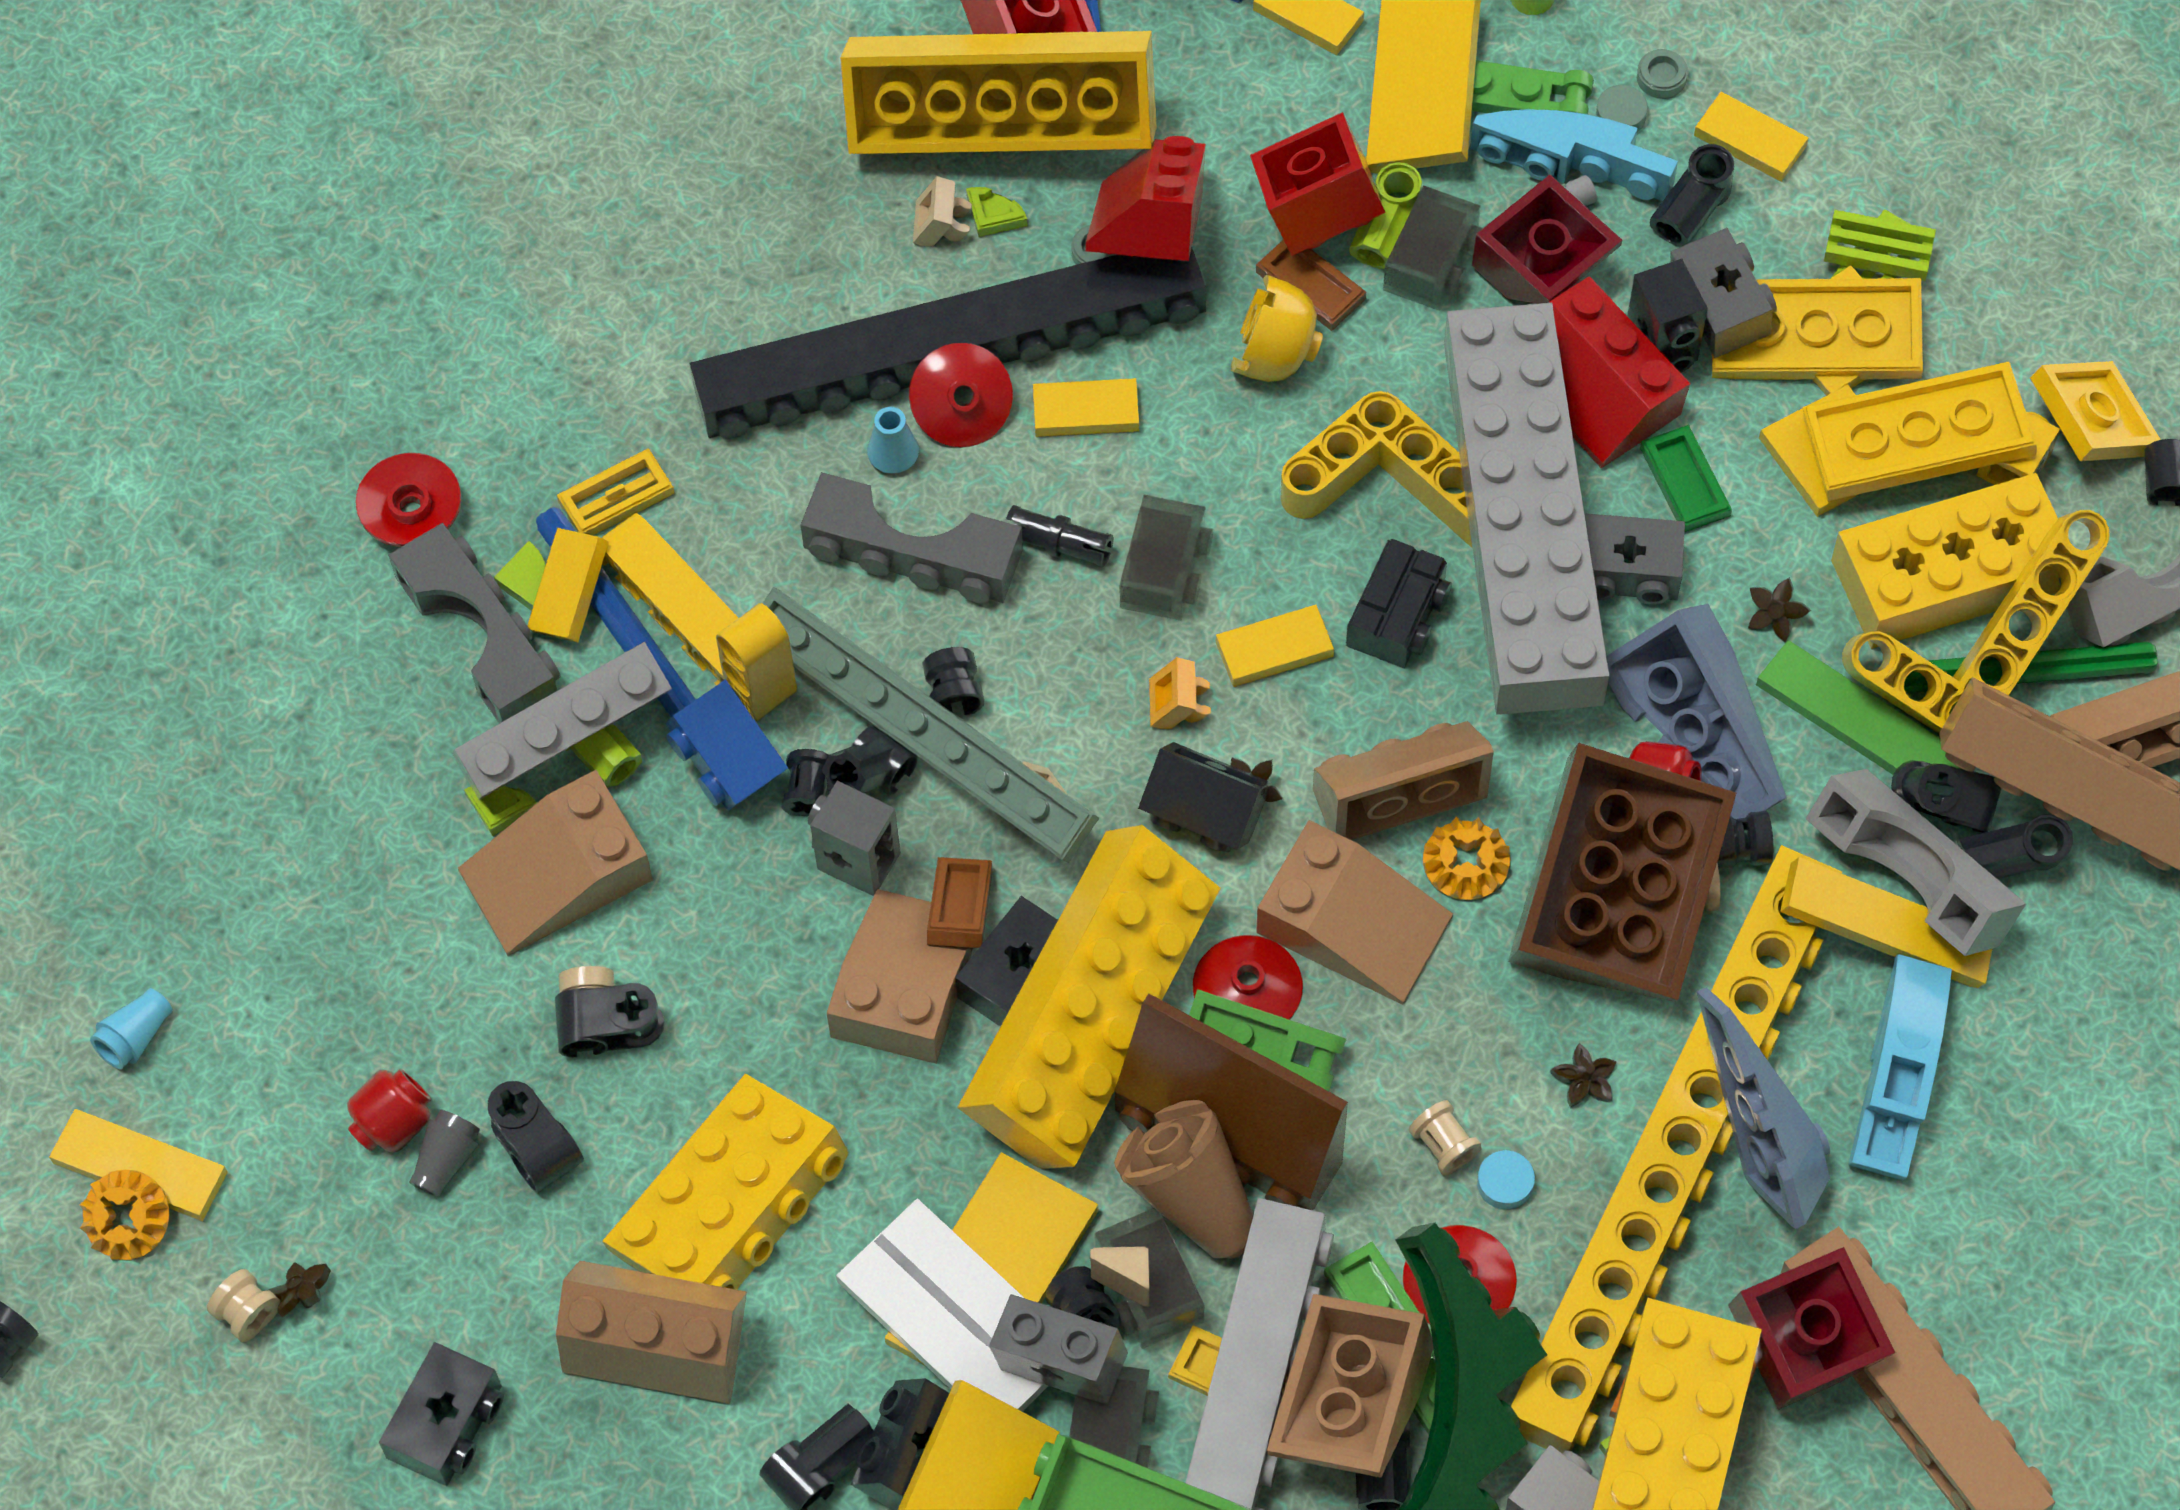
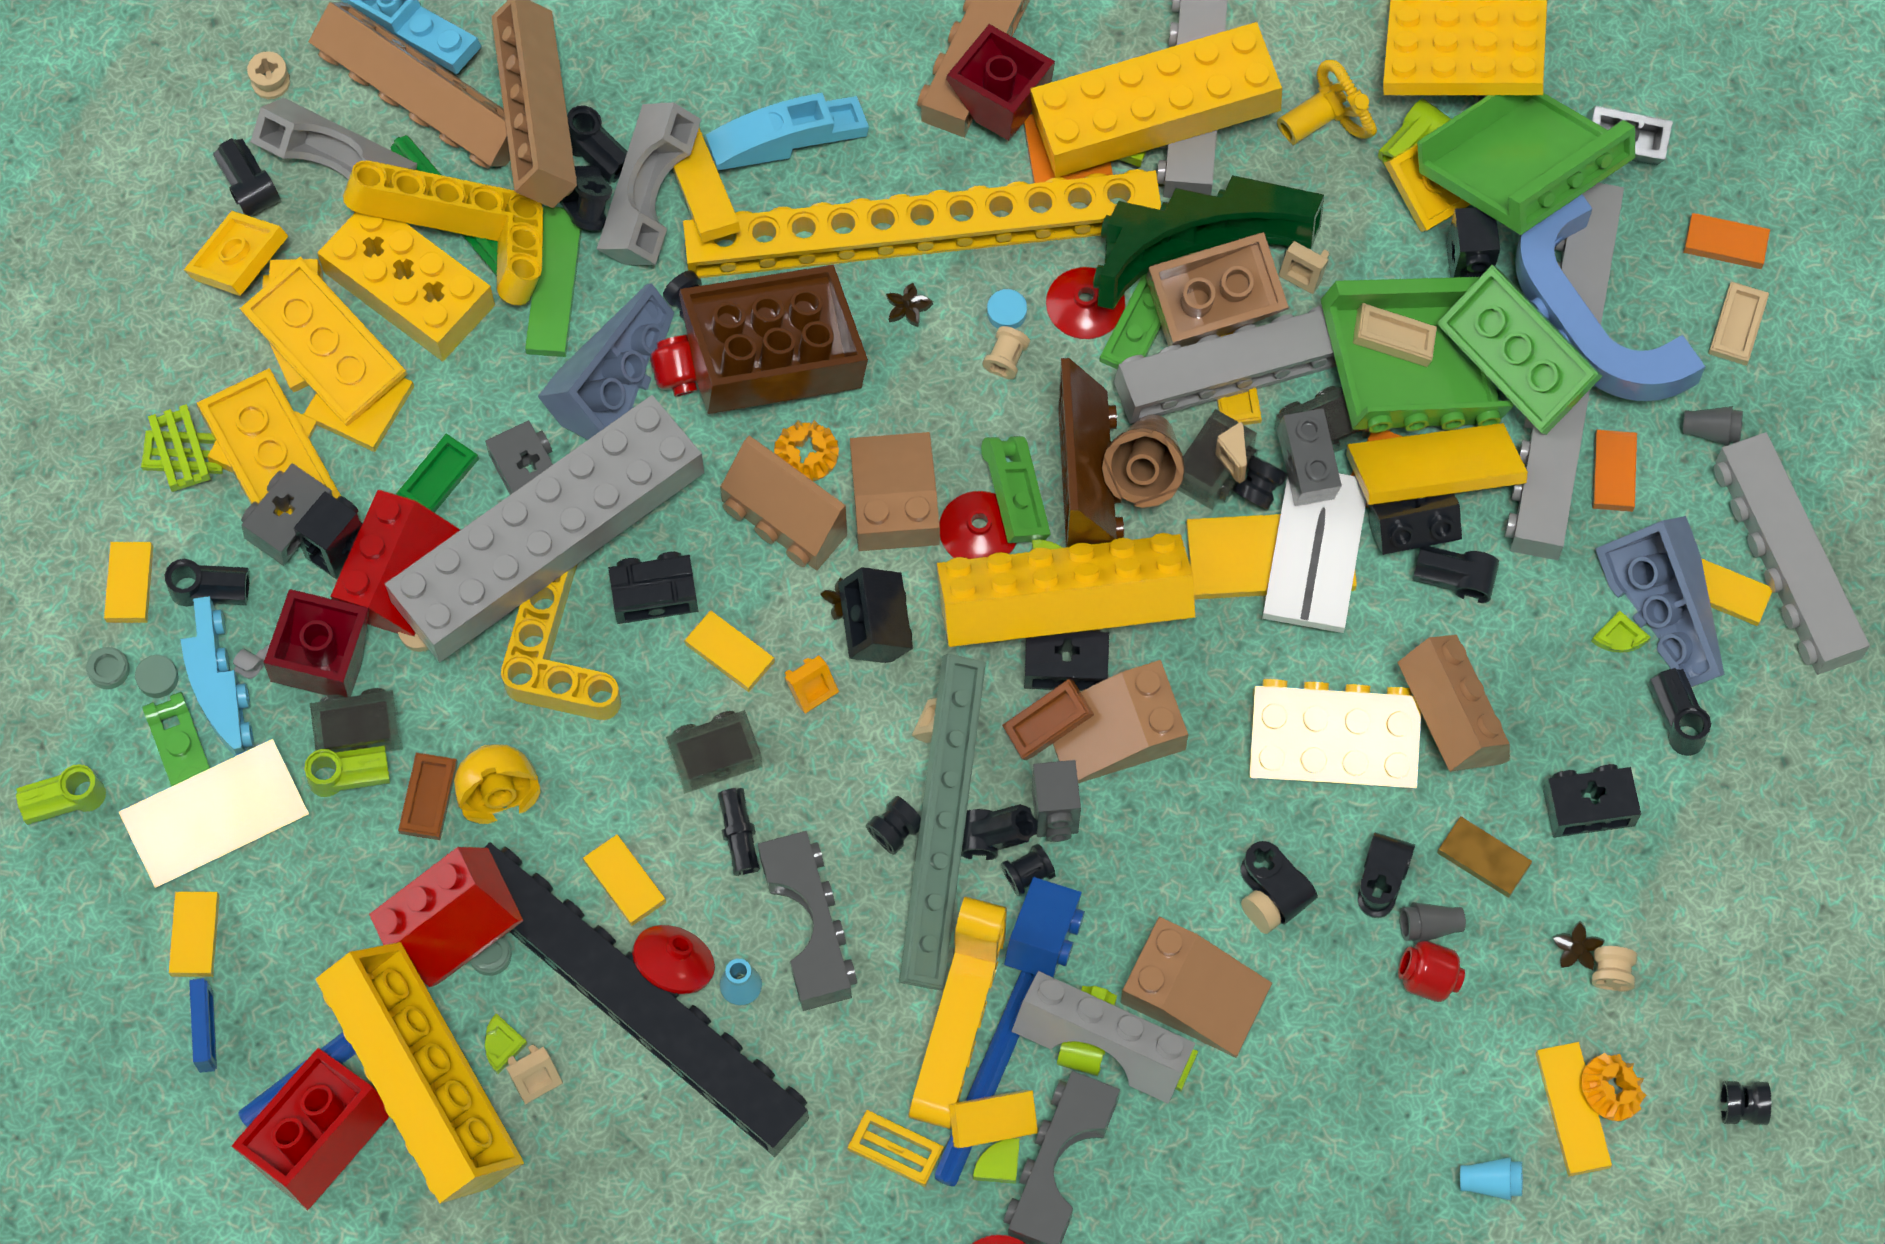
camera: 125 degrees left, 5 degrees up
(473, 1264) = (1484, 857): none -> pearl gold tile
(1317, 184) = (361, 813): red brick -> none
(1773, 1134) = (893, 161): sand blue wedge -> none
(1776, 608) = (506, 368): dark brown plant -> none

